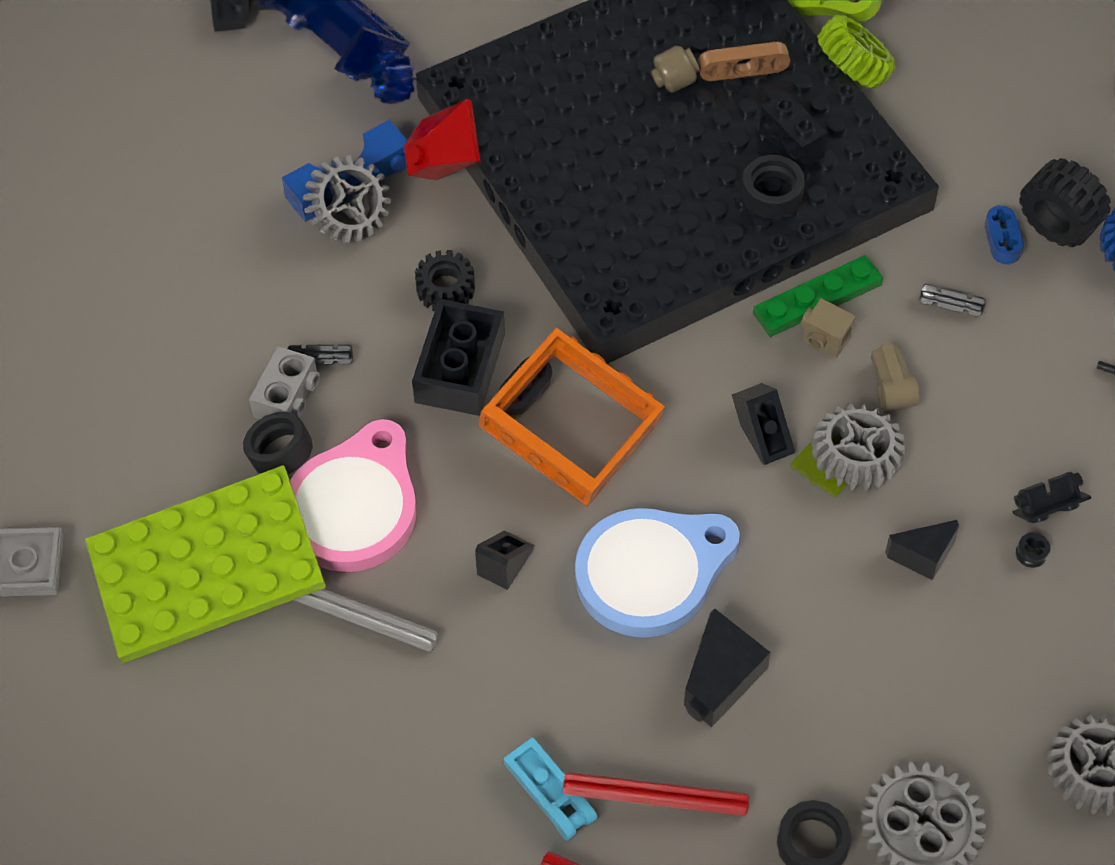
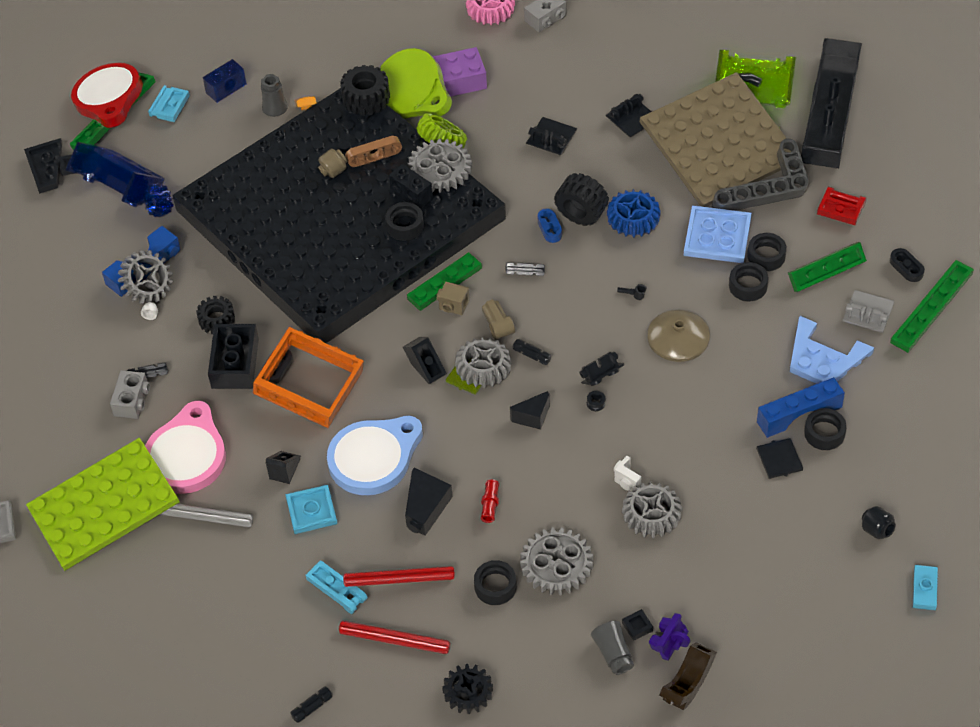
camera: 10 degrees left, 5 degrees down
(271, 428) = (128, 418): black tyre -> none
(343, 254) = (149, 311): none -> white hinge
(443, 143) = (198, 233): red slope -> none
(534, 642) = (311, 509): none -> medium azure tile
(828, 691) = (490, 501): none -> red pin
(848, 102) = (441, 164): none -> light grey gear
(940, 443) = (531, 351): none -> black axle
(1029, 86) = (551, 135): none -> black hinge
(1063, 697) = (625, 476): none -> white bracket

